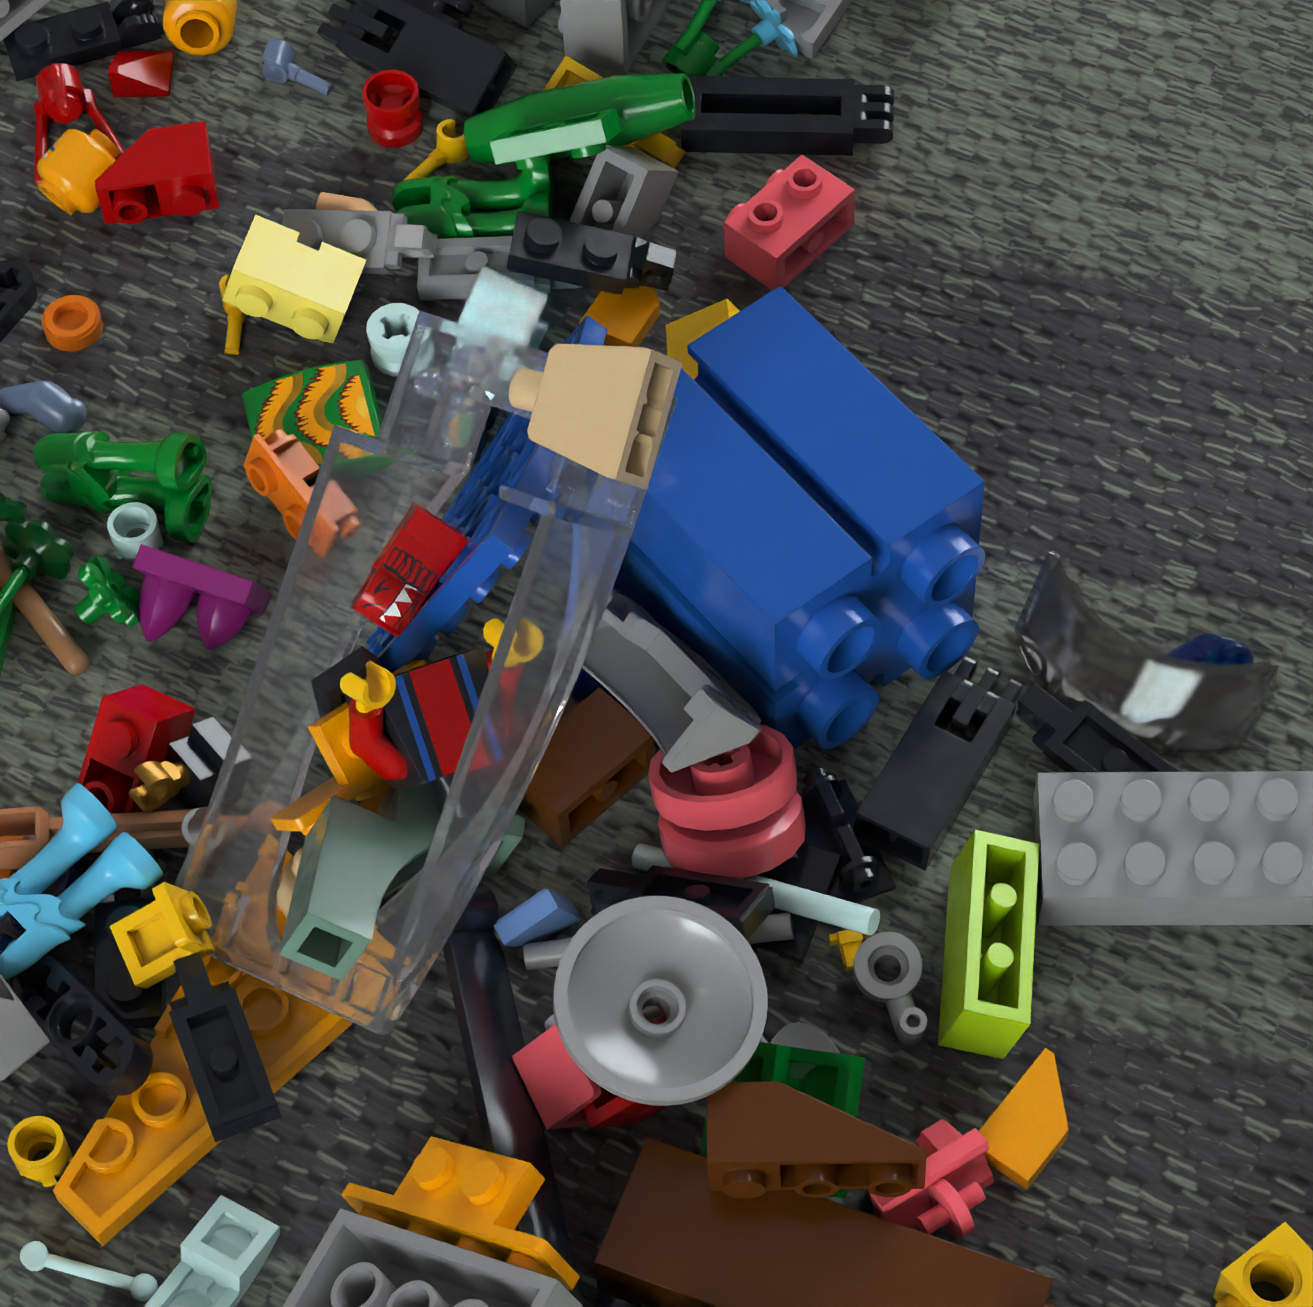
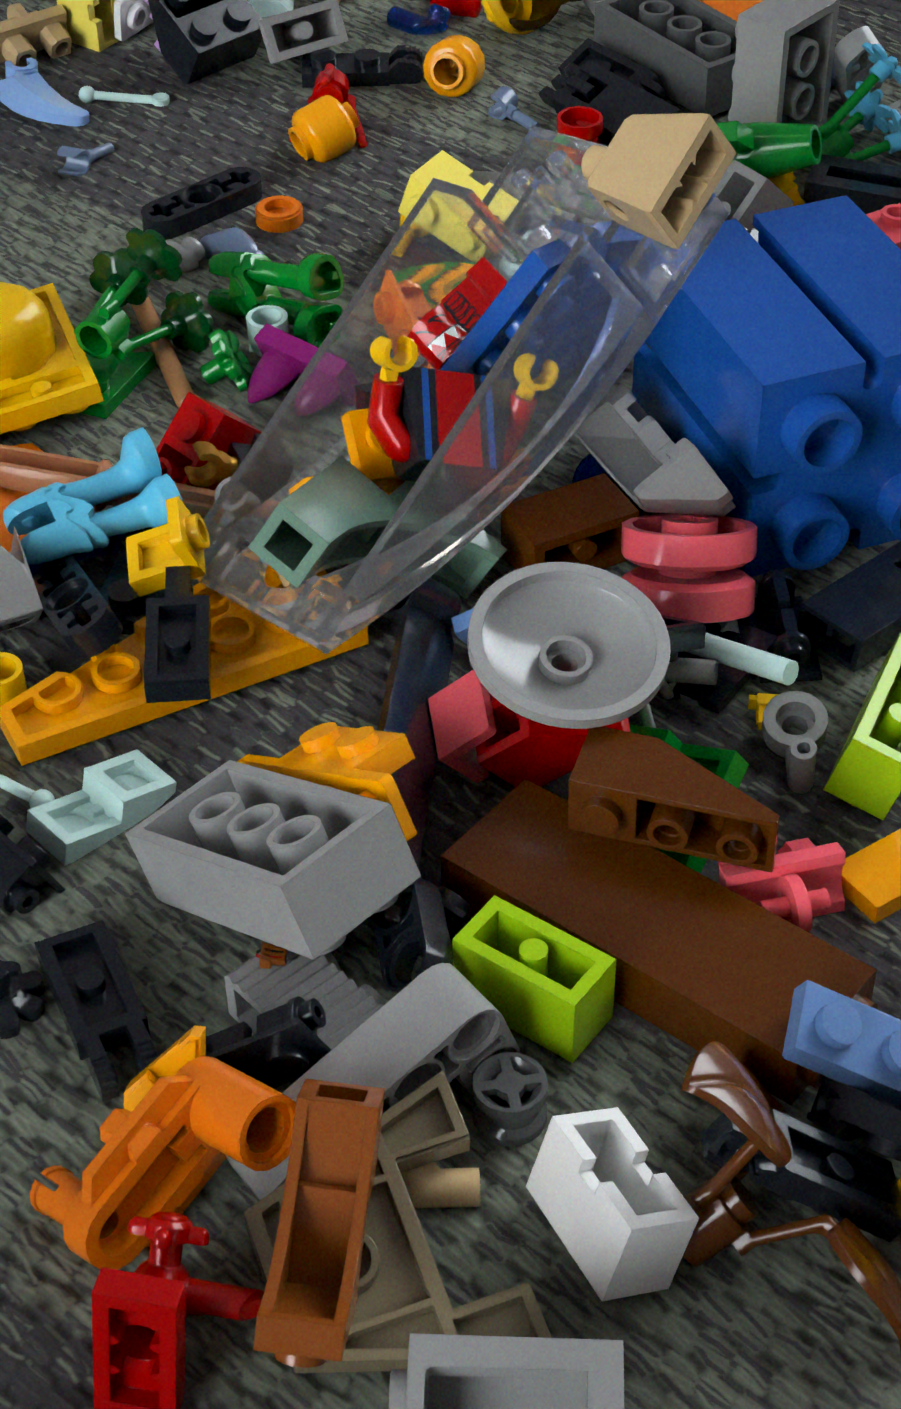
camera: 15 degrees right, 15 degrees down
(141, 73) = (395, 95): red slope -> none
(160, 175) = (382, 142): red slope -> none

